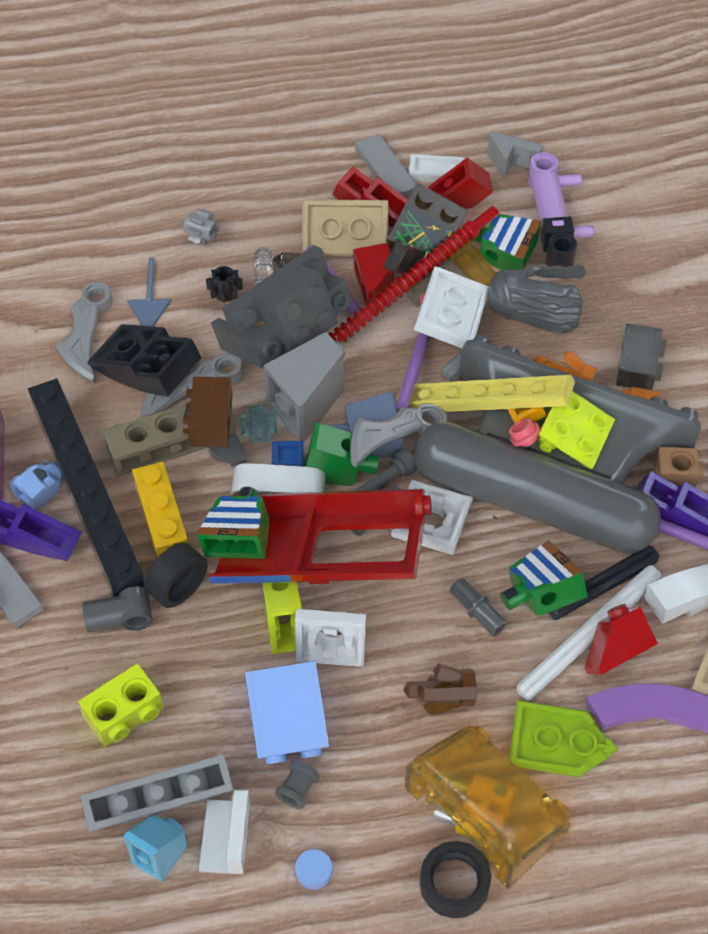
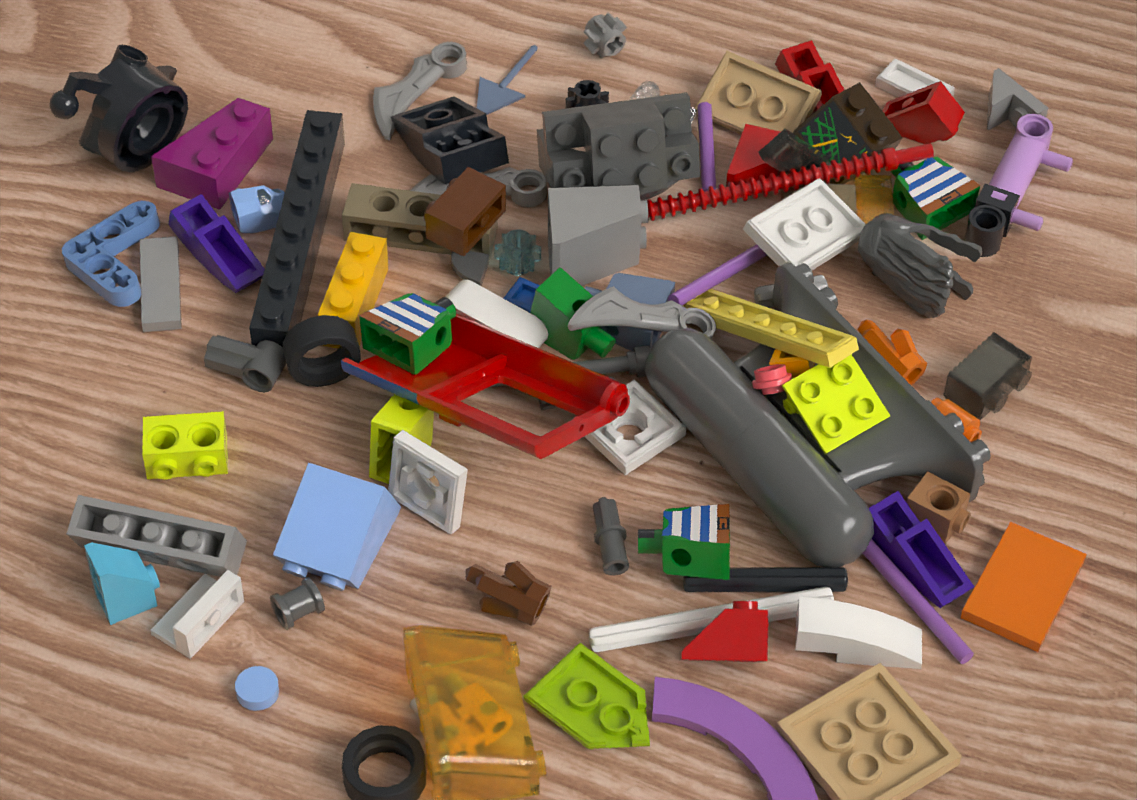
camera: 30 degrees right, 5 degrees down
(385, 164) = (858, 55): light grey tile -> none

